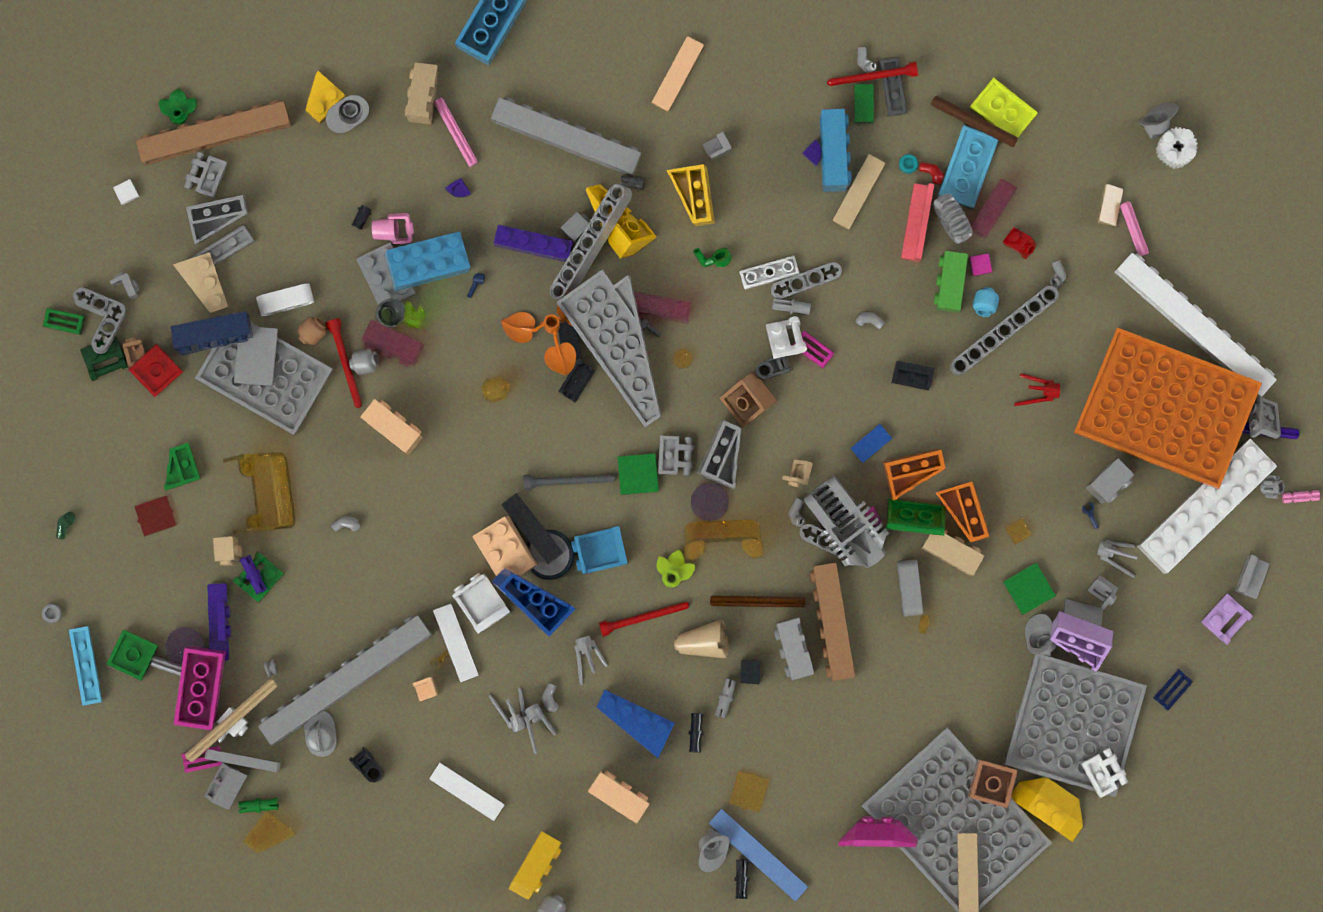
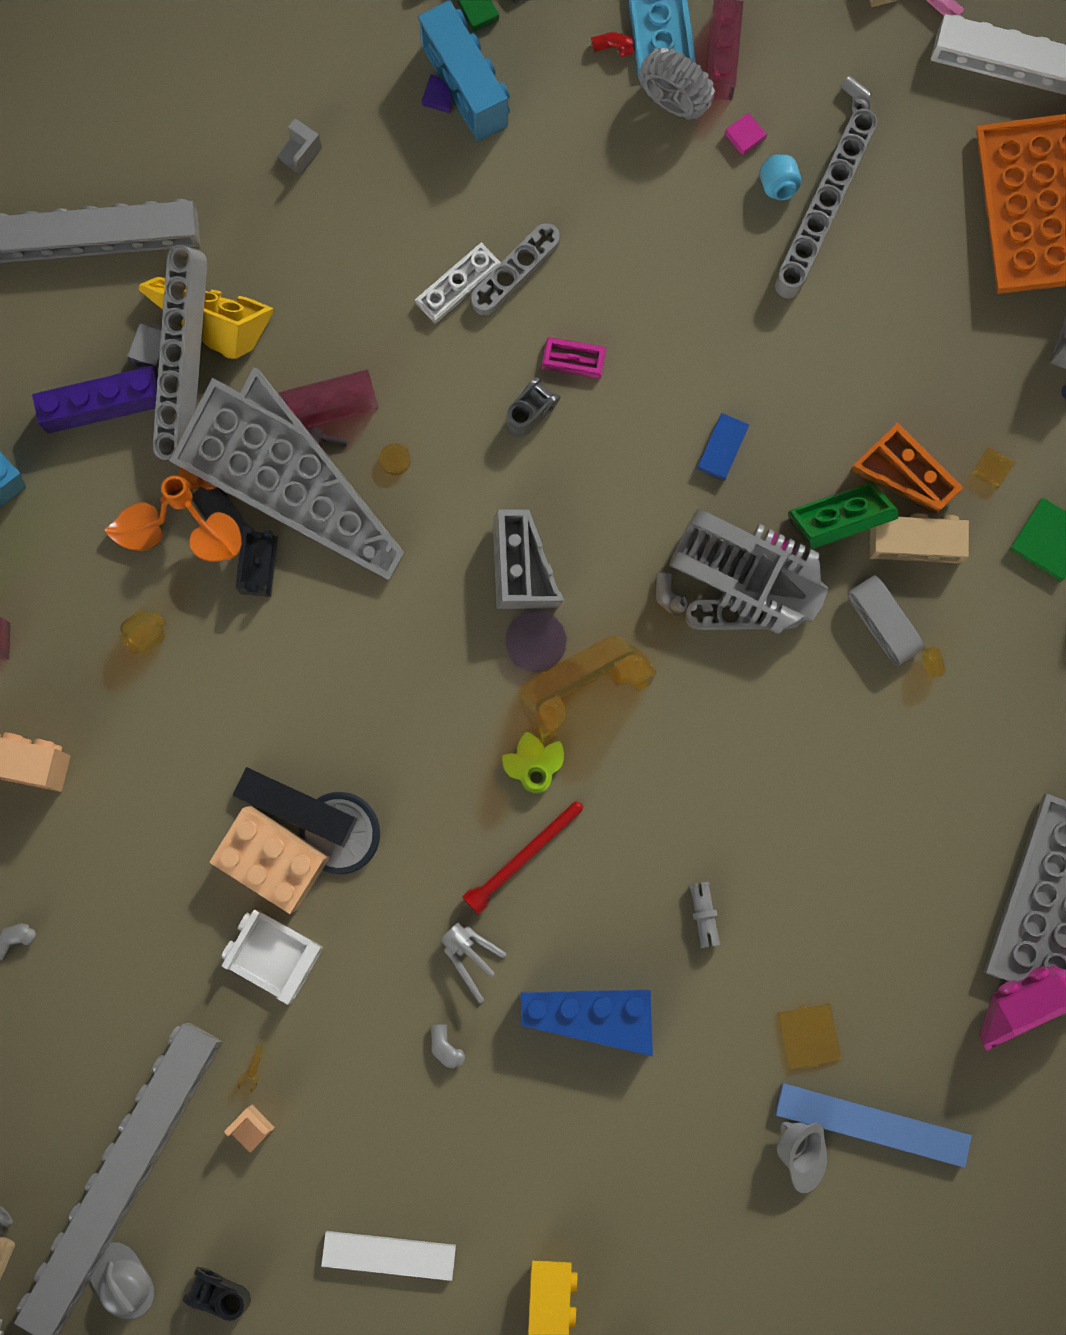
camera: 30 degrees left, 5 degrees down
(455, 643) = (262, 1035): white tile -> none
(477, 279) = (42, 489): dark blue hand -> none
(516, 720) = (412, 1108): light grey plant -> none
(531, 482) = (261, 740): dark grey piece -> none
(535, 715) = (435, 1083): light grey plant -> none
(536, 603) = (353, 914): blue wedge -> none
(599, 550) = (411, 790): dark azure panel -> none
(619, 796) = (624, 1145): light nougat brick -> none
(633, 182) = (210, 248): dark grey pin -> none
(638, 474) = (412, 652): green tile -> none
(669, 452) = (444, 603): light grey plate -> none
(677, 74) = (194, 79): light nougat tile -> none
(695, 193) = (293, 218): yellow wedge -> none
(696, 732) = (687, 988): black pin -> none
(704, 641) = (631, 845): tan cone -> none
(720, 258) = (379, 294): green plate -> none
(741, 879) = (868, 1175): black pin -> none
(748, 399) = (517, 468): medium nougat slope -> none
(750, 672) = (721, 856): black panel -> none
(757, 601) = (678, 749): reddish brown axle -> none
(779, 338) = (521, 364): white plate -> none
(791, 306) = (513, 312): light grey axle -> none
(793, 649) = (767, 791): light grey wedge -> none
(799, 474) = (644, 536): tan bracket -> none
(833, 621) = (803, 724): medium nougat brick -> none
(858, 192) = (527, 117): tan tile -> none
(869, 317) = (631, 275): light grey arm -> none
(908, 164) = (575, 49): teal tile -> none
(911, 470) = (801, 454): orange wedge -> none
(912, 375) = (732, 324): black hinge -> none
(917, 222) = (630, 117): coral fence -> none
(950, 281) = (718, 172): bright green brick -> none
(1020, 242) = (783, 77): red bracket -> none
(1050, 390) = (929, 252): red plant -> none

